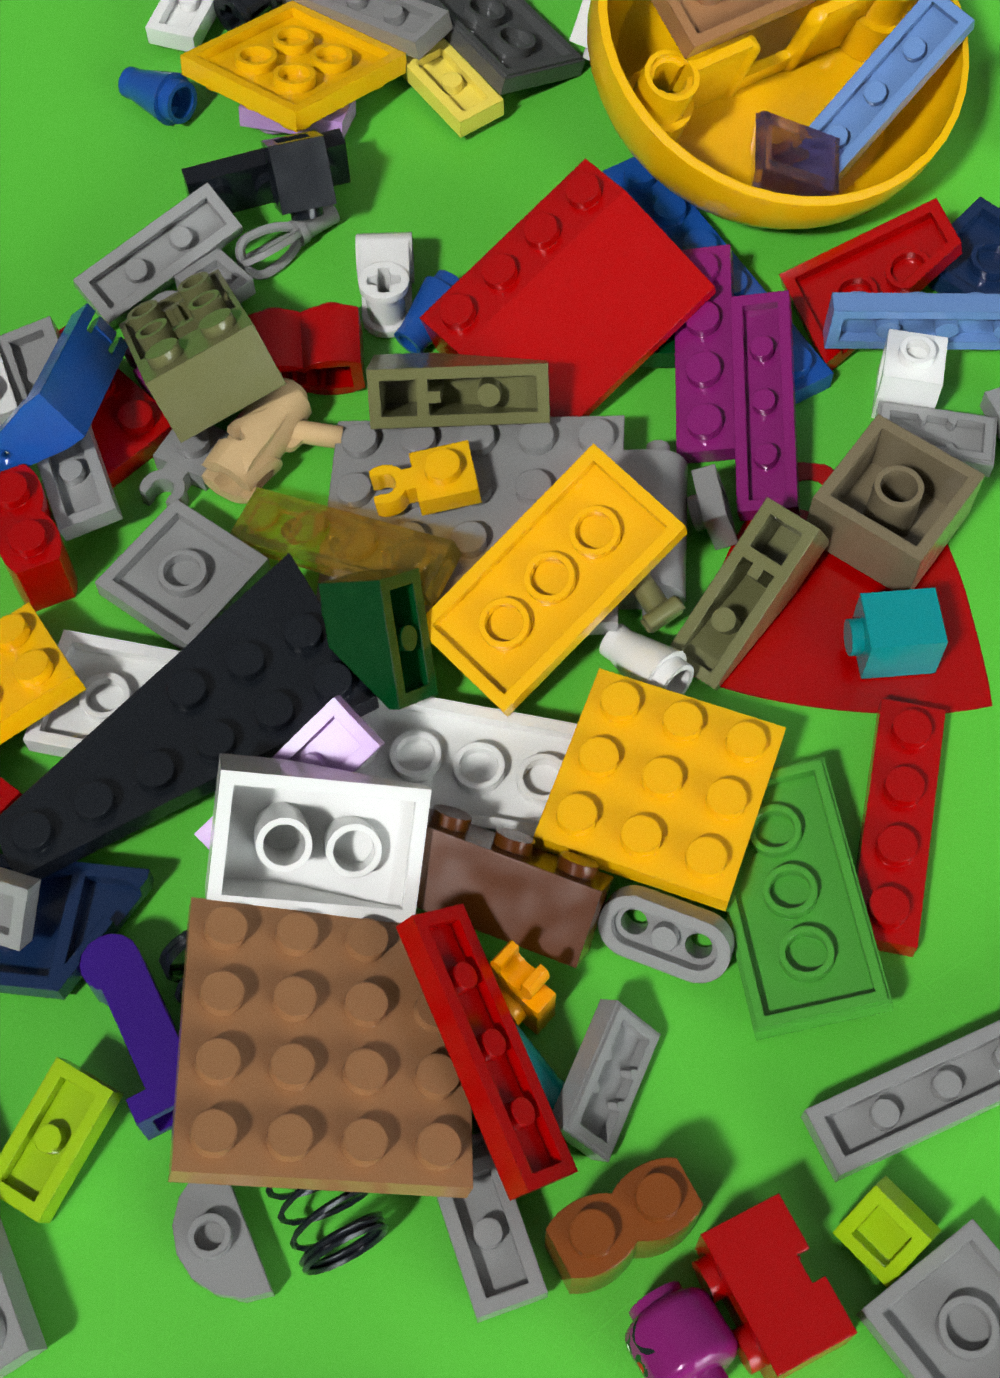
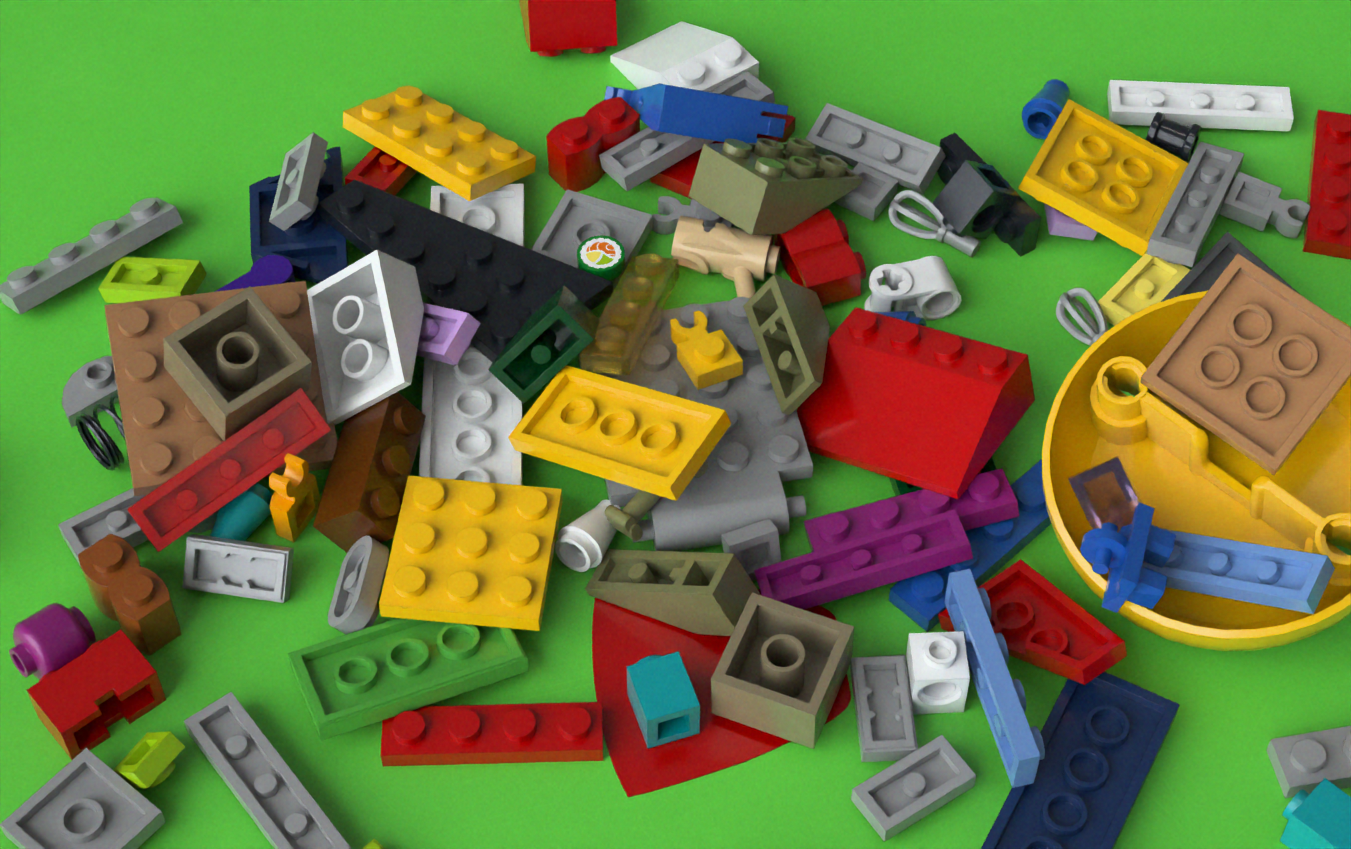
camera: 75 degrees right, 10 degrees down
(237, 560) = (601, 257): none -> tile
(352, 990) = (236, 362): none -> dark tan brick
(502, 140) = (1095, 330): none -> light grey piece
(871, 148) = (1124, 556): none -> blue hips

